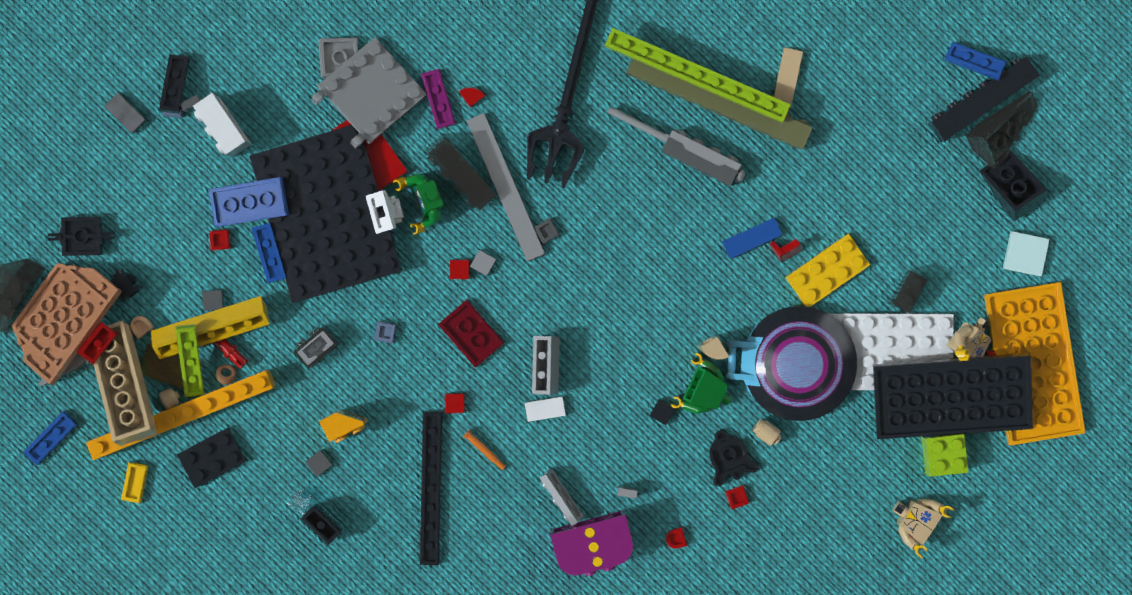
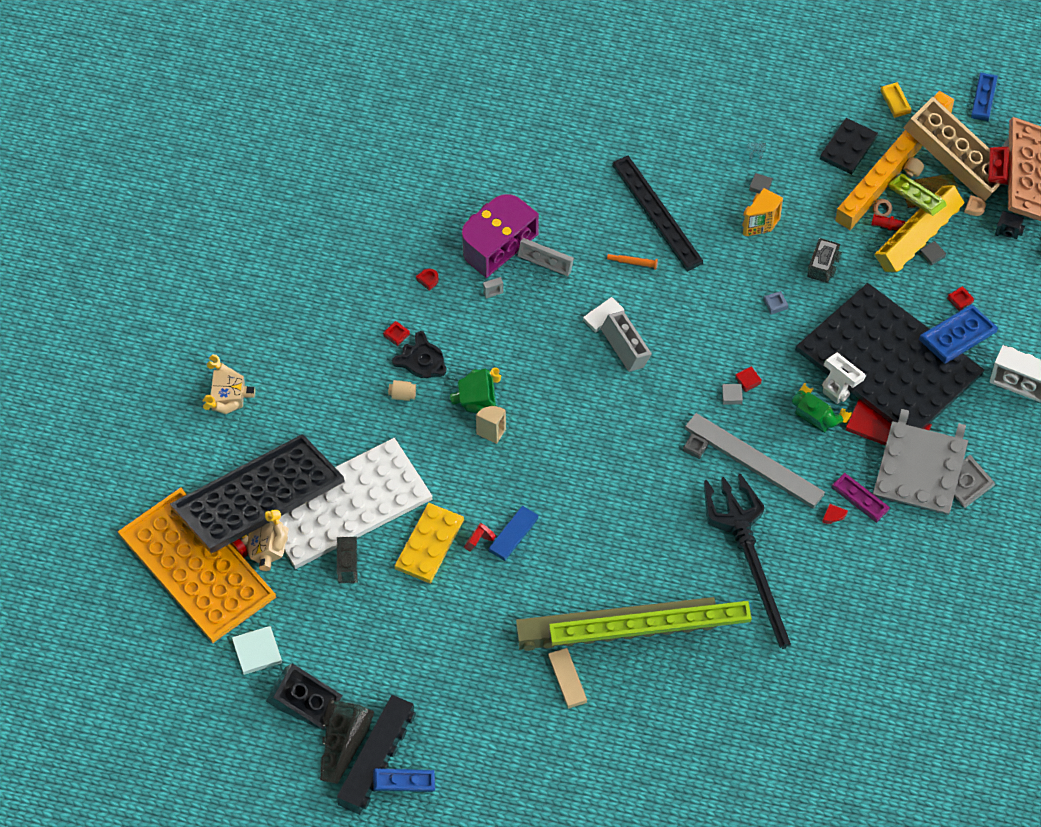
camera: 145 degrees right, 30 degrees down
(268, 253) = (914, 307): blue plate -> none
(322, 524) = (727, 140): black brick -> none
(454, 403) = (681, 281): red tile -> none
(460, 172) = (802, 446): clear smoke wedge -> none
(471, 333) = (704, 338): dark red tile -> none
(662, 412) = (502, 361): black tile -> none
(691, 151) = (612, 569): piece -> none
(796, 363) = (412, 454): dish -> none
(944, 454) = (234, 448): lime brick -> none

